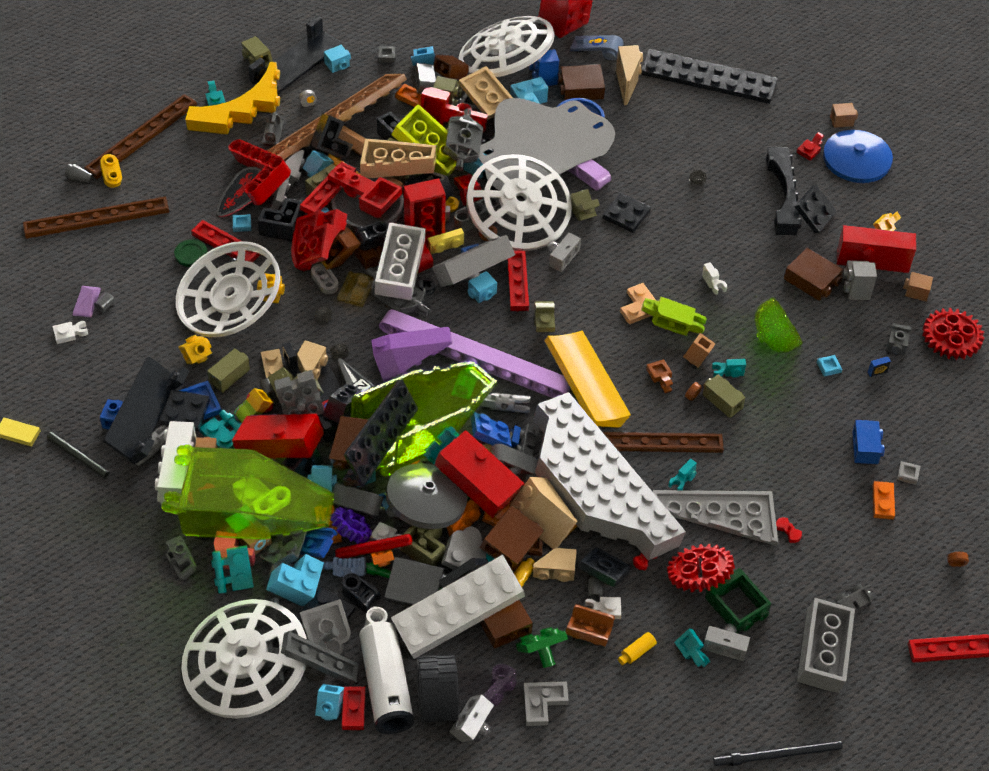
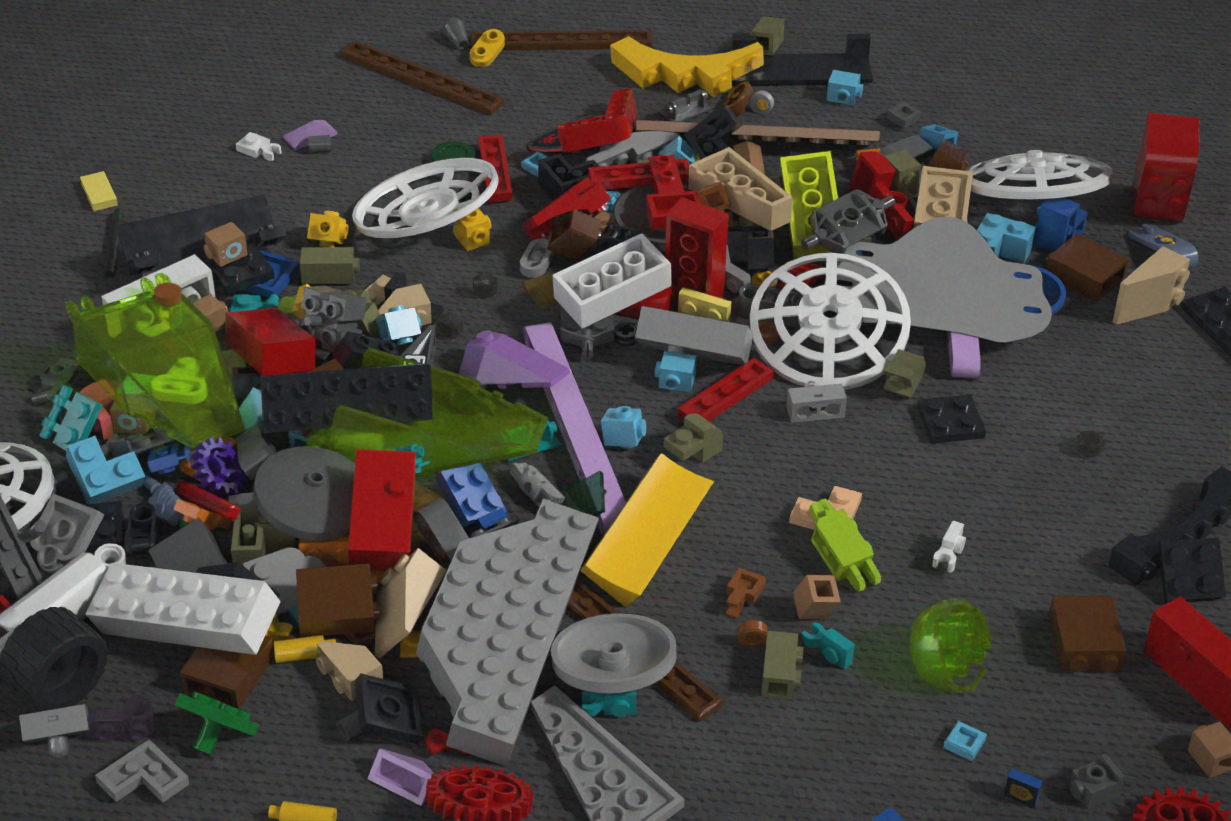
camera: 50 degrees right, 10 degrees down
(172, 401) = (225, 244): none -> medium nougat brick
(209, 454) = (167, 294): none -> dark orange tile
(214, 97) = (679, 47): teal plate -> none
(292, 104) = (739, 97): none -> reddish brown plate
(329, 373) = (399, 325): none -> brick
(393, 174) = (715, 197): none -> dark orange plate
(503, 337) = (623, 427): none -> medium azure brick
(540, 388) = (587, 495): none -> clear green piece
(590, 625) = (290, 751): dark orange bracket -> none
(607, 605) = (339, 754): white plate -> none
(650, 591) = (401, 775): none -> lavender slope
(663, 451) = (613, 653): none -> light grey dish
(859, 279) = (1136, 678): light grey brick -> none

